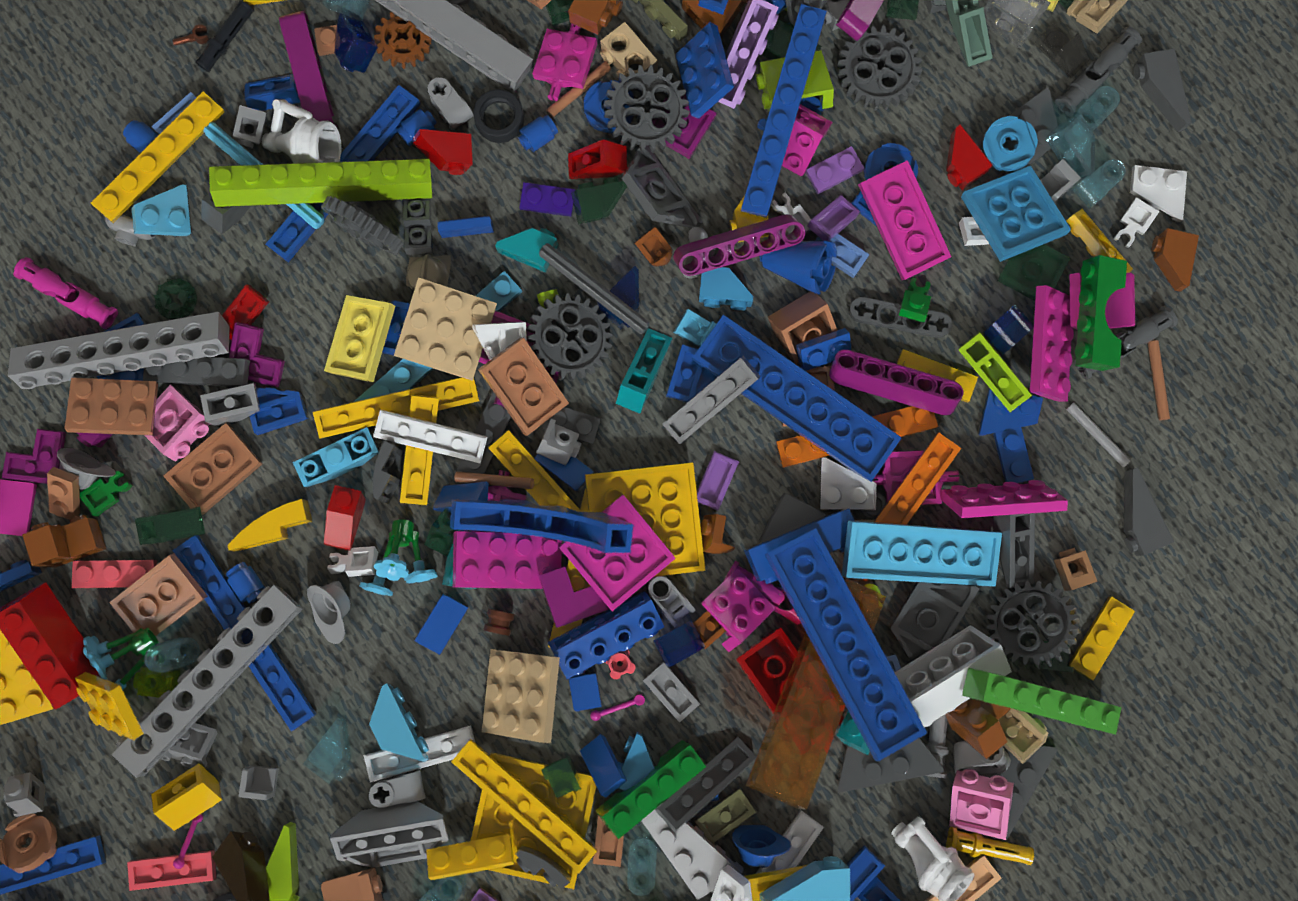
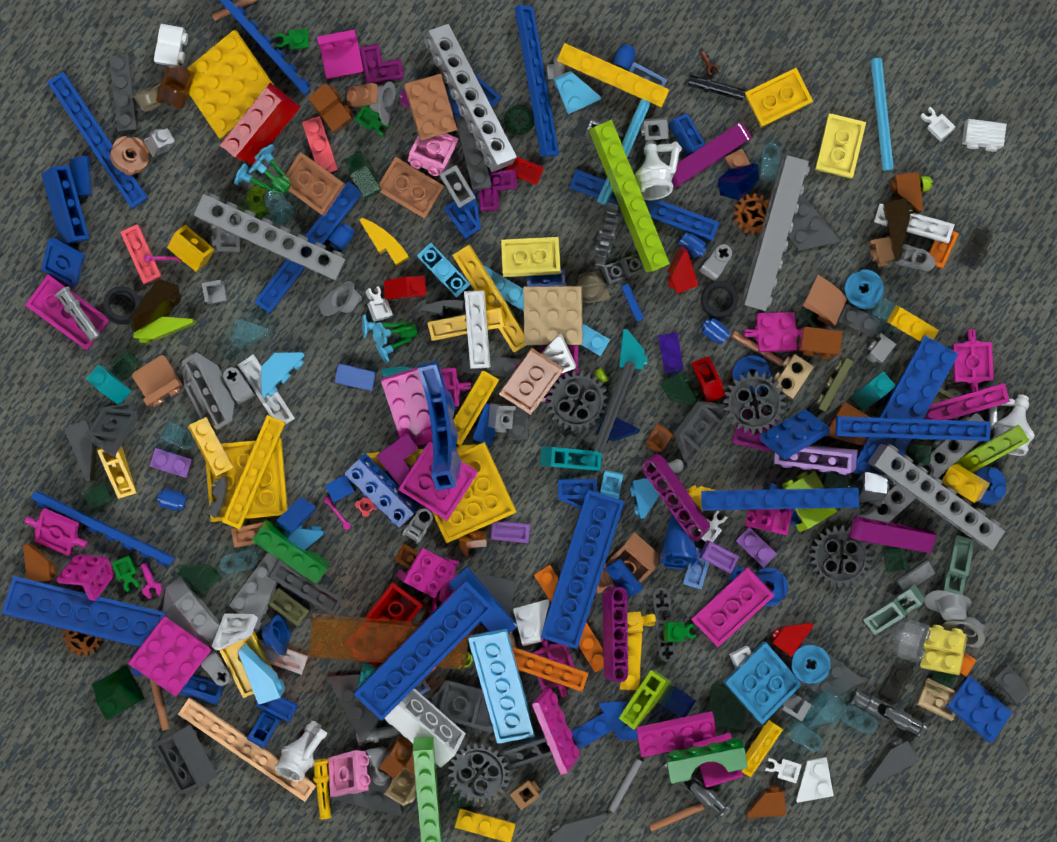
camera: 70 degrees right, 5 degrees up
(52, 285) = (501, 32): dark pink piece -> none
(108, 705) = (233, 180): yellow plate -> none
(131, 259) = (536, 81): none -> blue plate
(441, 535) = (414, 357): clear green plate -> none
(466, 491) = (445, 362): blue slope -> none
(495, 480) = (462, 381): nougat bar -> none
(499, 622) = (368, 415): copper wheel -> none
(520, 695) = (324, 446): tan plate -> none
(562, 776) = (280, 490): clear green panel -> none
(671, 692) = (358, 545): light grey plate -> none
(679, 643) = (391, 541): clear blue piece -> none
(711, 399) = (562, 511): plate -> none
(887, 349) = (636, 622): none -> yellow plate

